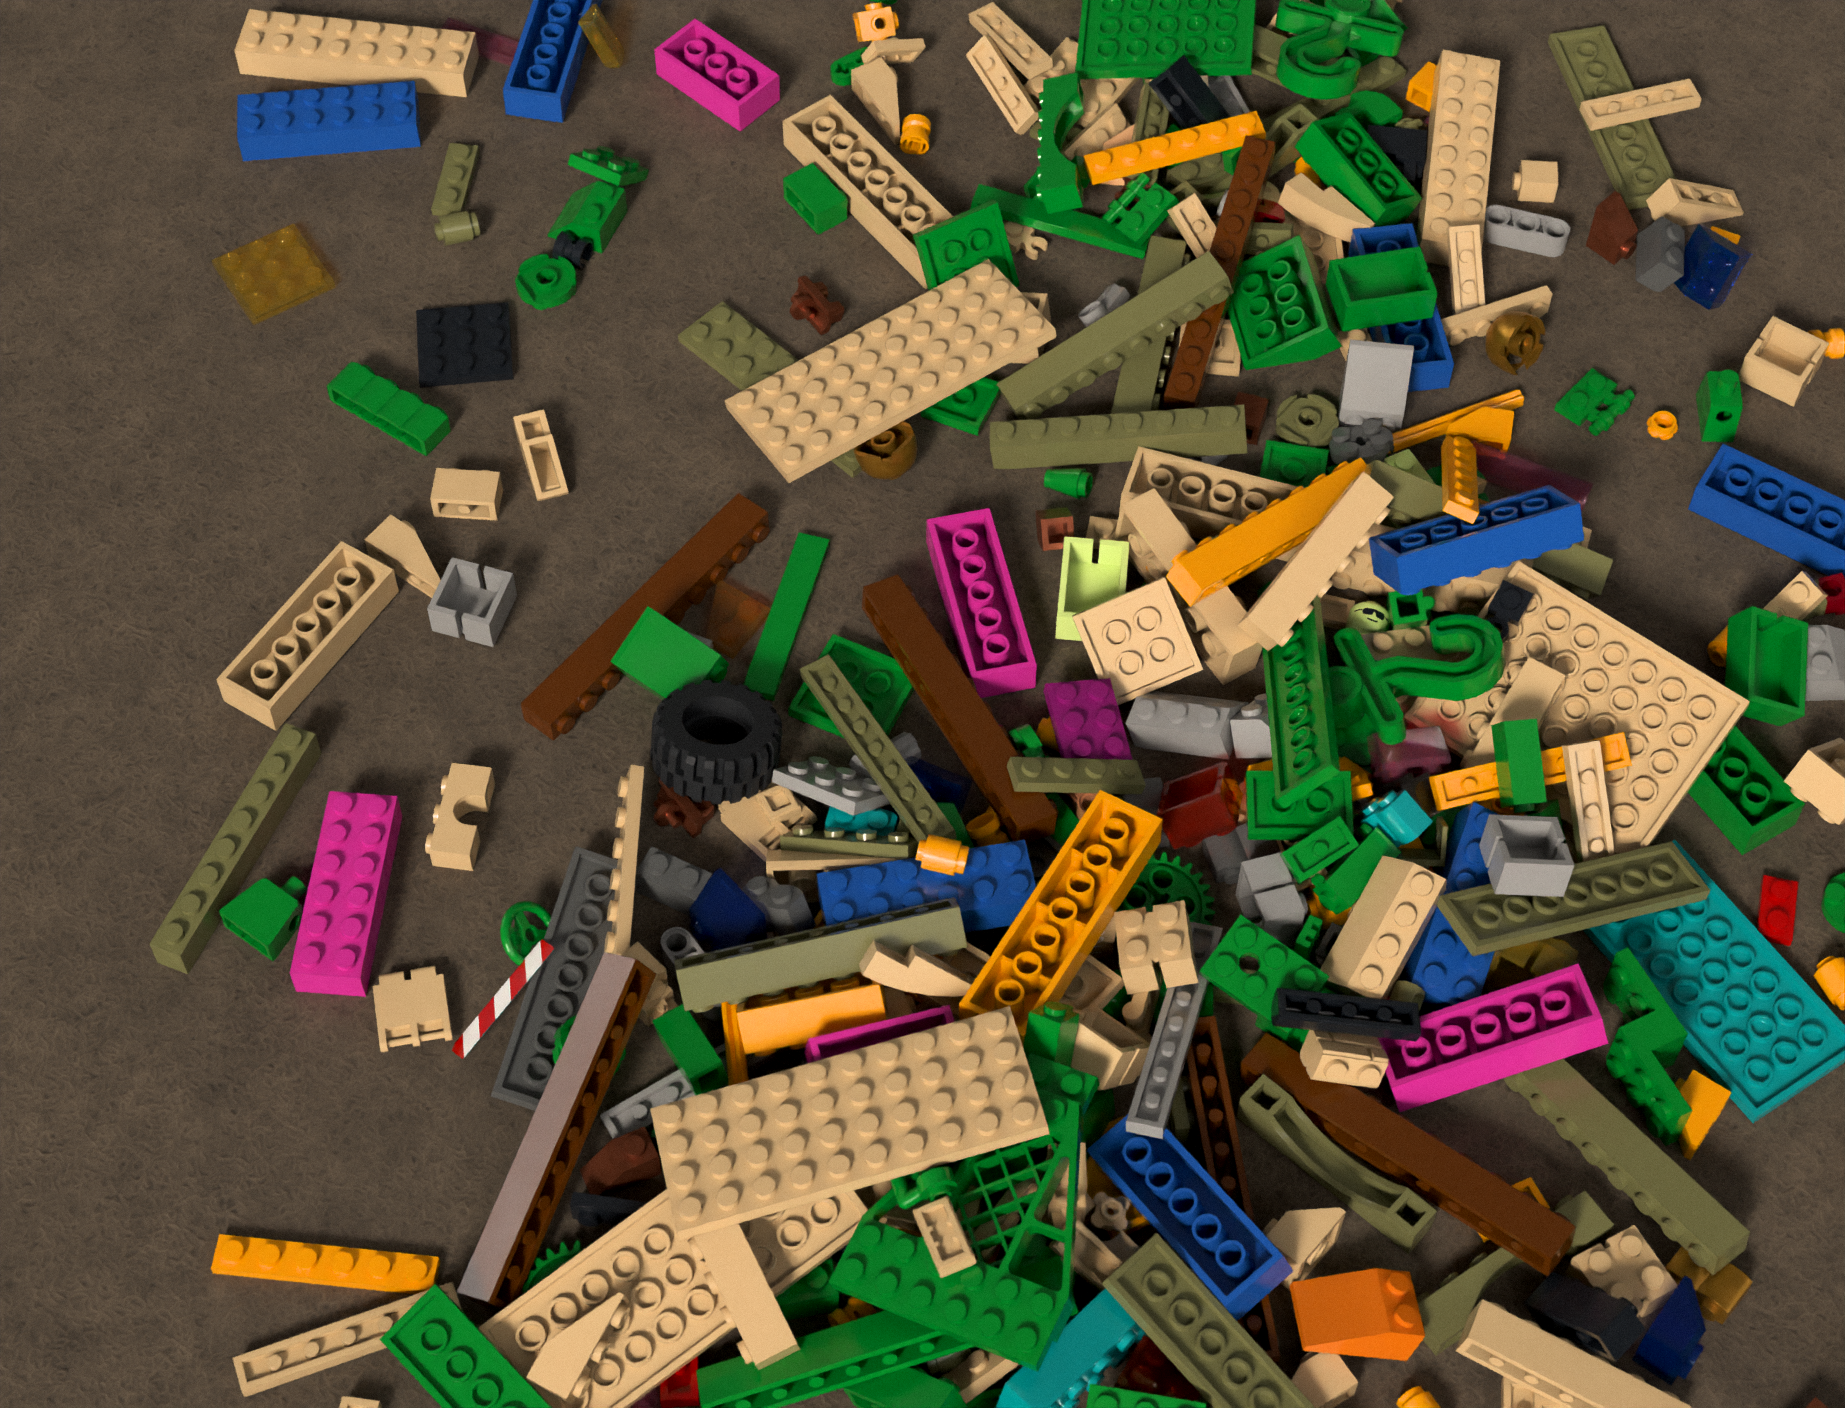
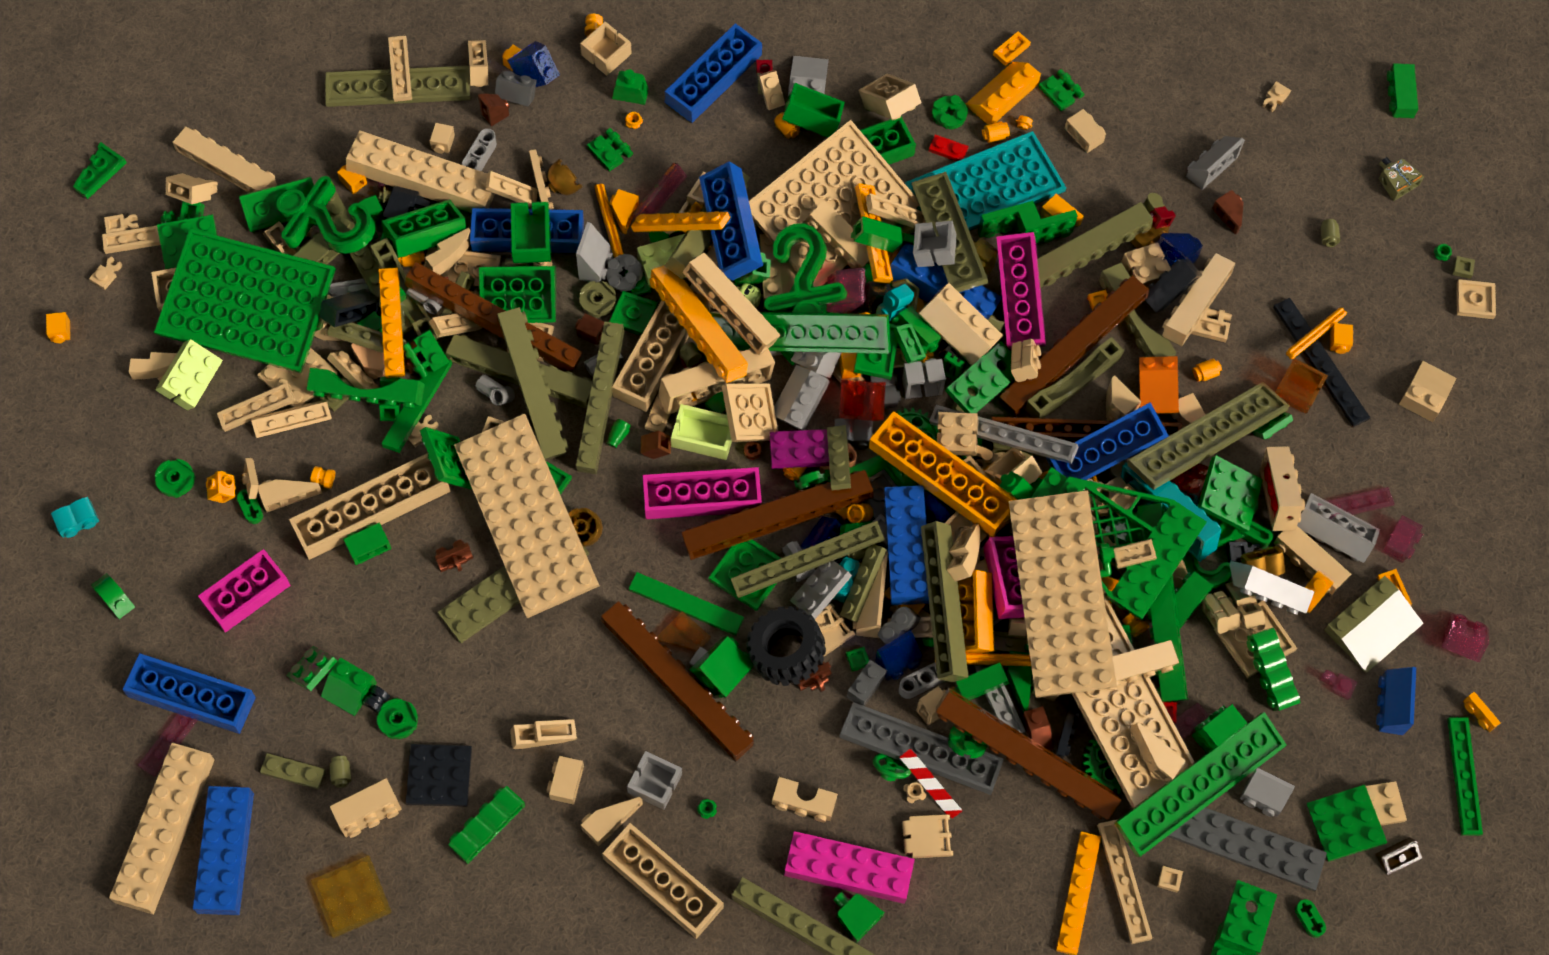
camera: 85 degrees left, 10 degrees up
(397, 257) = (366, 808): none -> tan brick
(435, 679) = (712, 808): none -> green plate
(484, 977) = (917, 786): none -> tan plate
(602, 37) = (194, 660): clear yellow slope -> none
(625, 850) = (857, 705): tan plate -> none
(728, 864) = (857, 658): none -> green tile
(942, 855) = (897, 526): light orange brick -> none
(1076, 663) = (753, 456): none -> copper bush
(1345, 1014) = (1009, 351): black brick -> none
(1509, 607) = (771, 217): black plate -> none
(1752, 1270) = (1158, 211): none -> dark red leg

